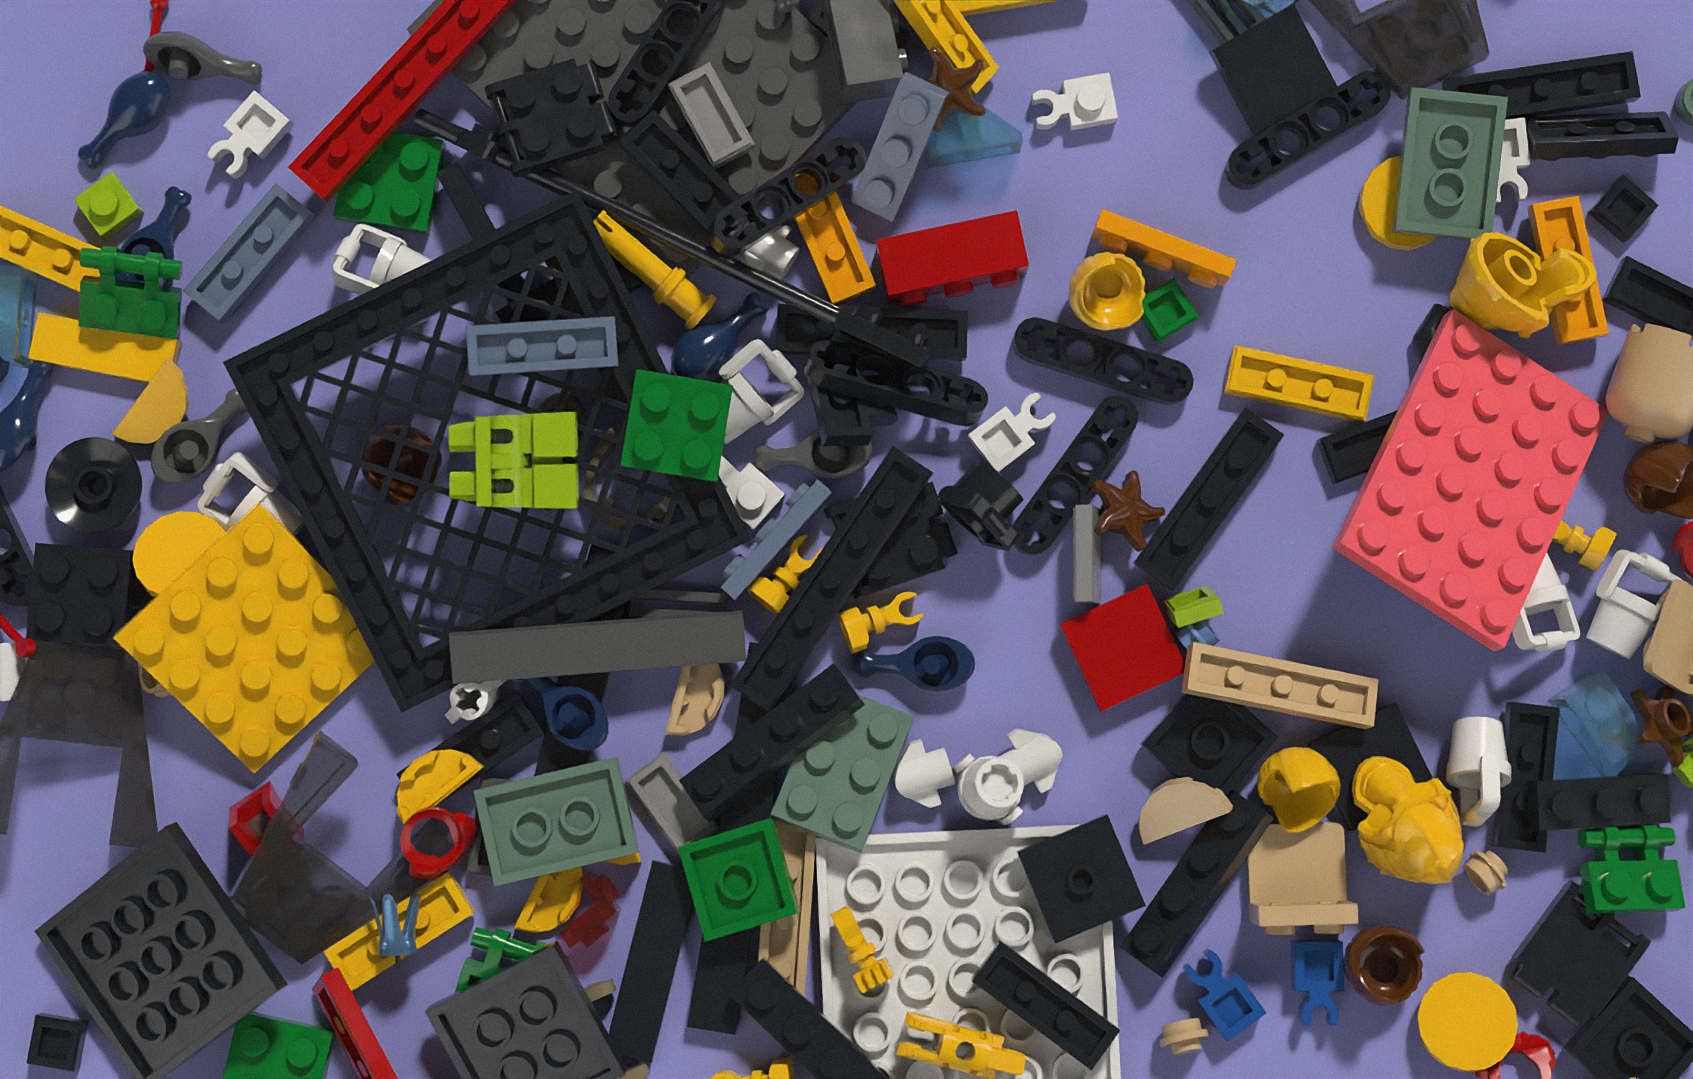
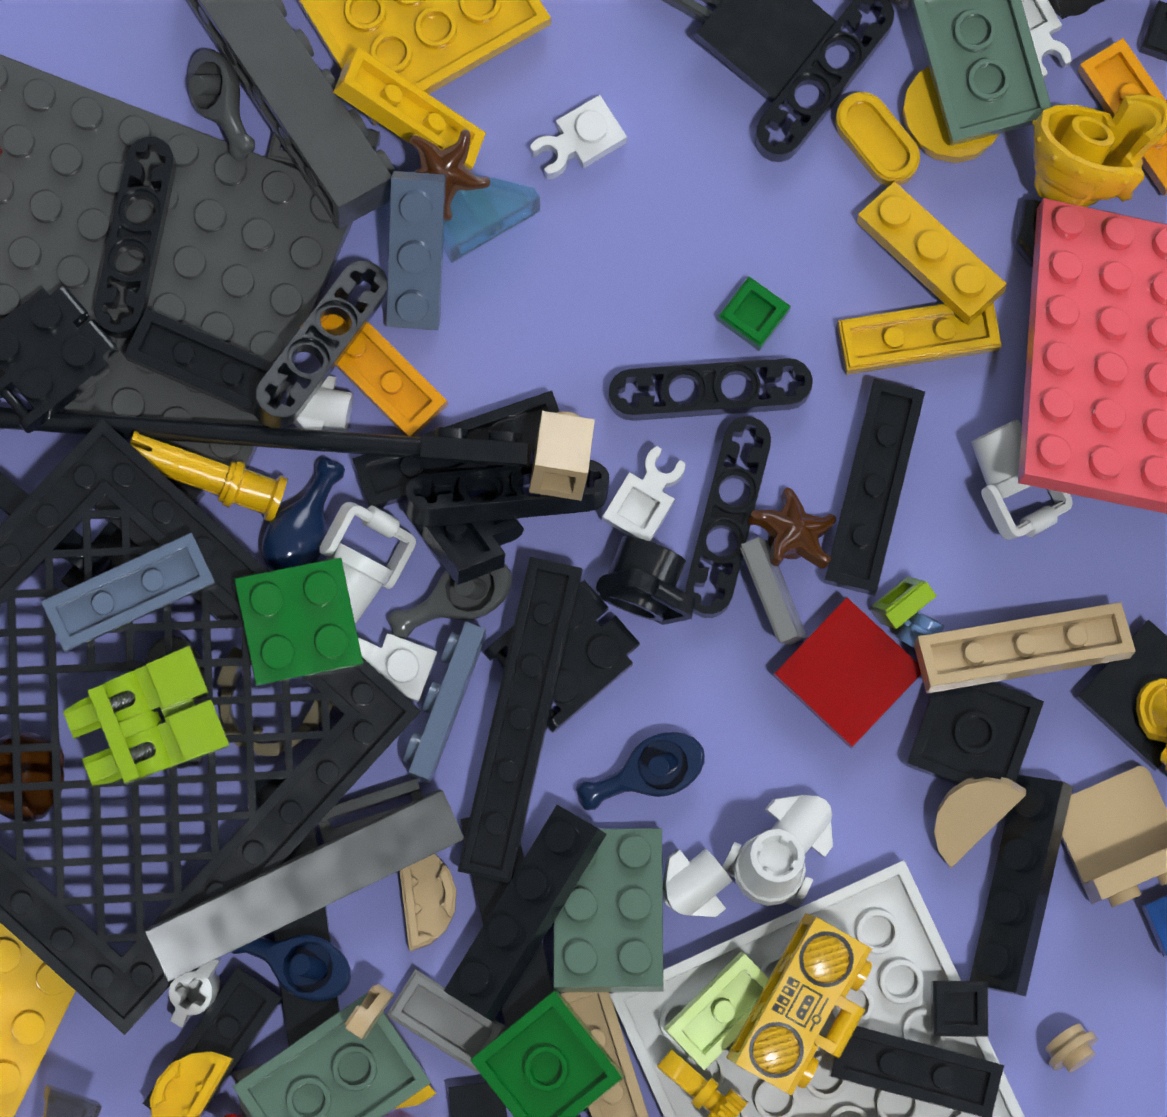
camera: 25 degrees left, 5 degrees down
(608, 775) = (368, 1013): none -> tan tile
(711, 116) = (208, 293): light grey tile -> none
(773, 593) = (466, 760): yellow piece -> none
(857, 626) = (565, 759): yellow piece -> none
(903, 890) = (718, 1011): none -> yellowish green plate
(952, 259) = (514, 344): red brick -> none
(953, 370) = (562, 455): none -> tan brick
(968, 909) = (796, 1002): none -> yellow piece
(1081, 878) = (905, 923): black plate -> none
(1102, 967) = (959, 1008): none -> black tile
(1107, 291) = (686, 315): yellow hair -> none
(1163, 250) = (726, 252): light orange plate -> none
(1226, 1000) = (1101, 995): blue plate -> none
(1298, 787) = (1085, 744): yellow hair -> none
(1323, 520) = (999, 462): none -> white piece
(1331, 201) = (877, 139): none -> yellow tile
(1337, 318) = (931, 253): none -> yellow plate
(1354, 448) = (1001, 379): black tile -> none

